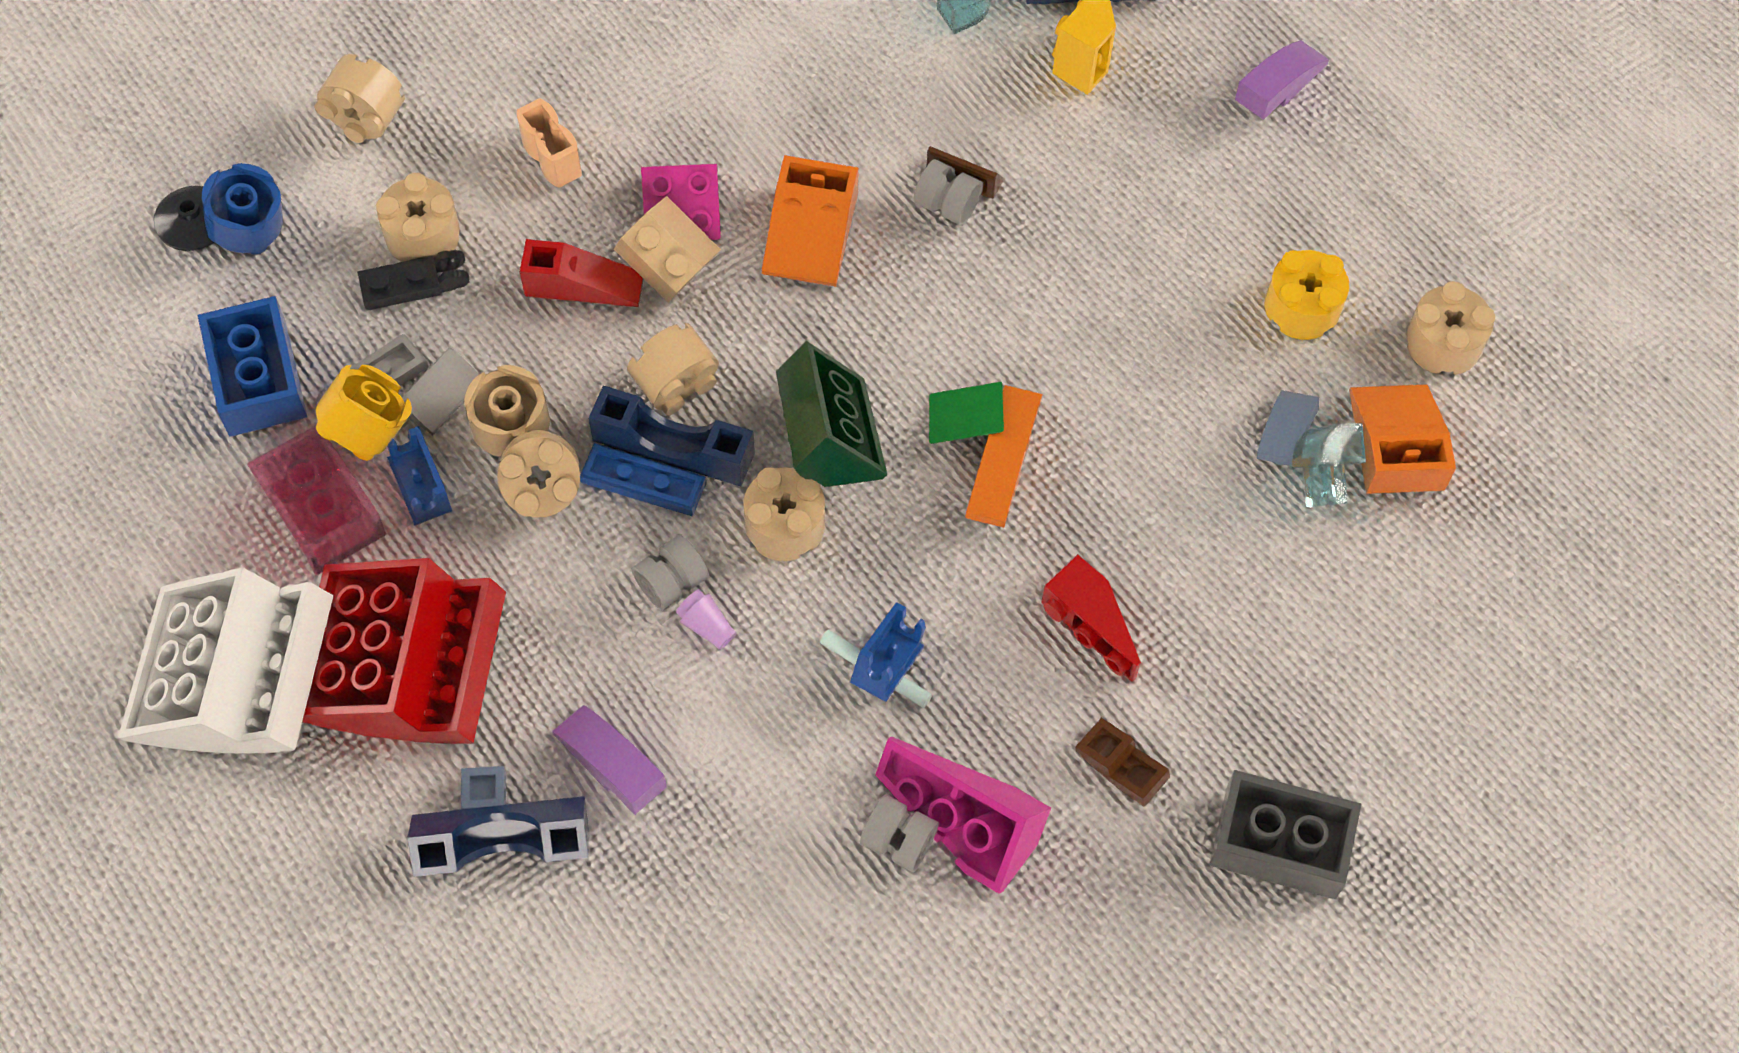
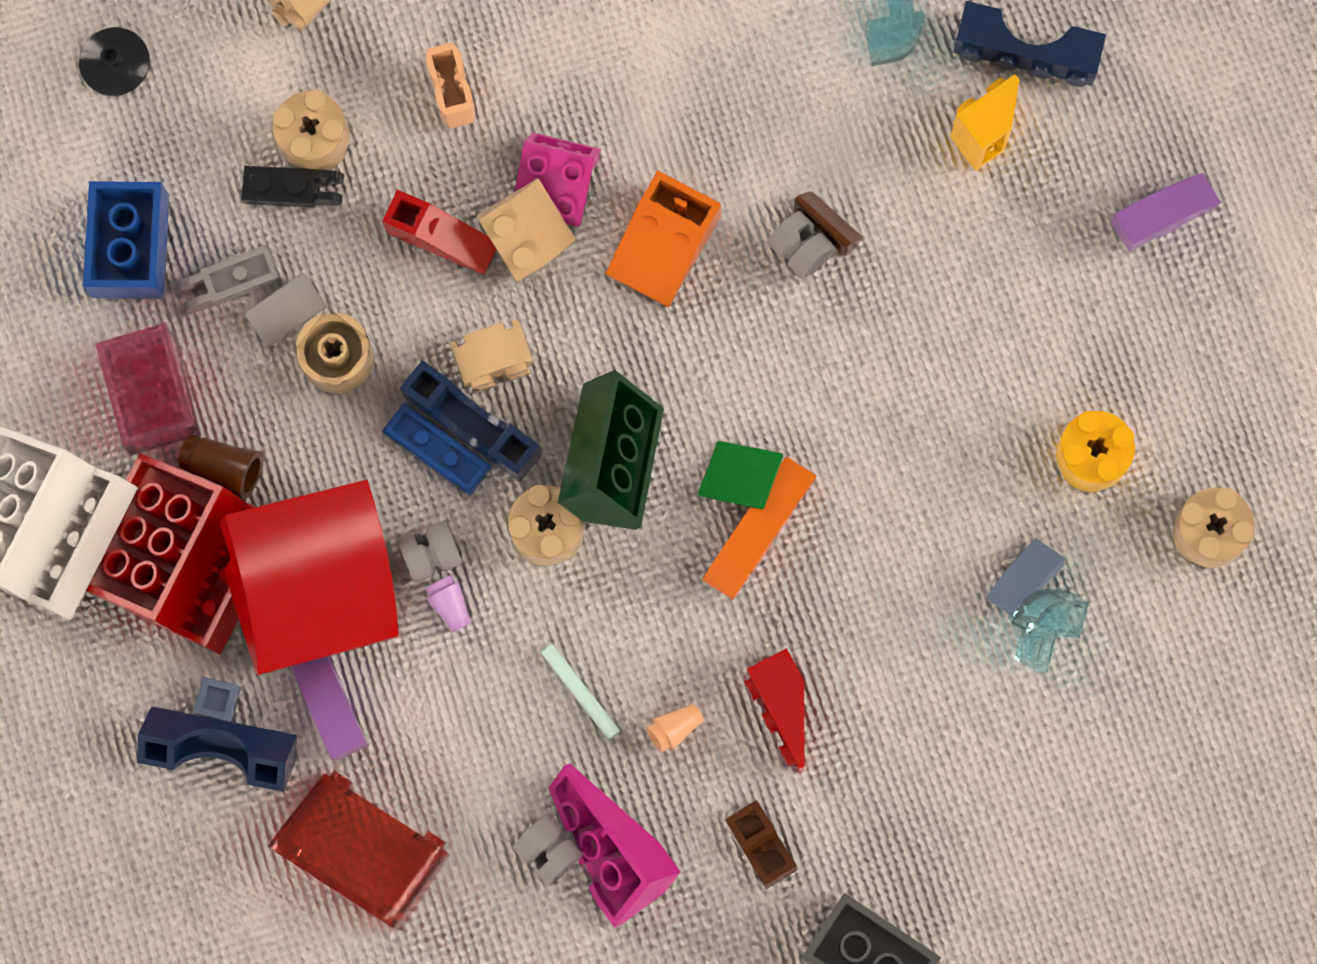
camera: 25 degrees right, 15 degrees up
(242, 209) = (152, 56): blue brick -> none
(362, 411) = (206, 321): yellow brick -> none
(418, 478) = (243, 390): blue hinge -> none
(438, 543) = (222, 464): none -> reddish brown plant
(529, 494) = (342, 426): tan brick -> none
(550, 623) = (310, 576): none -> red slope
(693, 894) = (360, 850): none -> clear red windscreen
(888, 654) = (592, 688): blue hinge -> none
(984, 675) = (672, 728): none -> light nougat cone
(1403, 439) = (1124, 618): orange slope -> none

